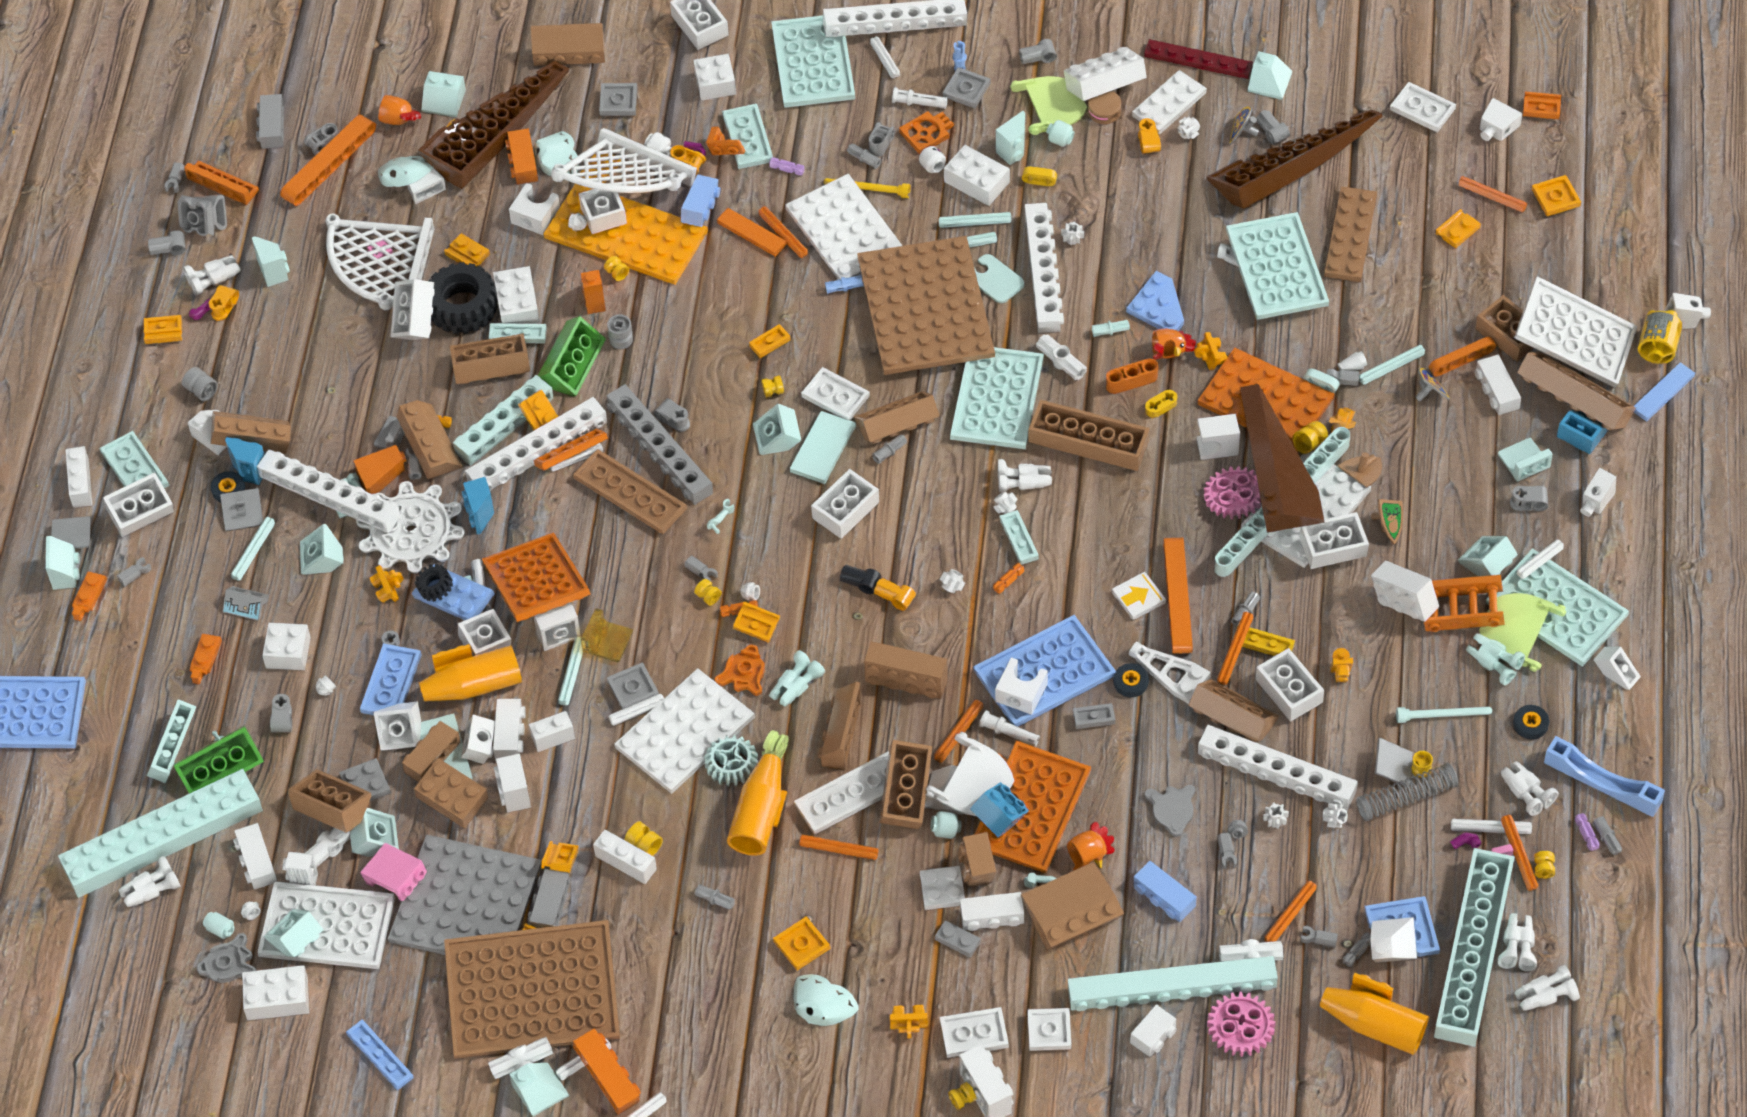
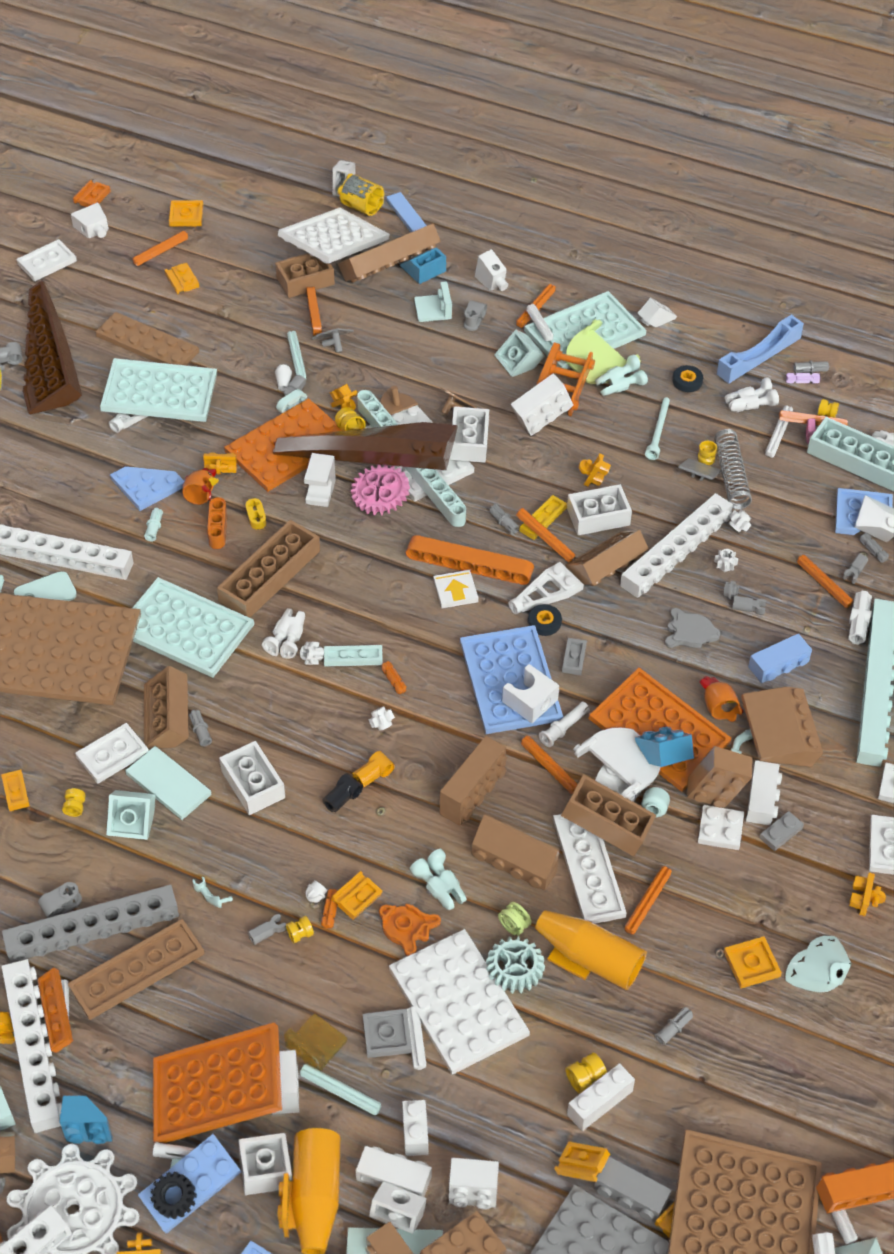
camera: 75 degrees left, 5 degrees down
(1061, 357) = (168, 566): white piece -> none
(1072, 233) = (33, 519): white gear -> none
(1466, 838) = (787, 450): magenta arm -> none
(1498, 385) = (353, 299): white brick -> none
(1581, 552) = (539, 302): none -> orange axle

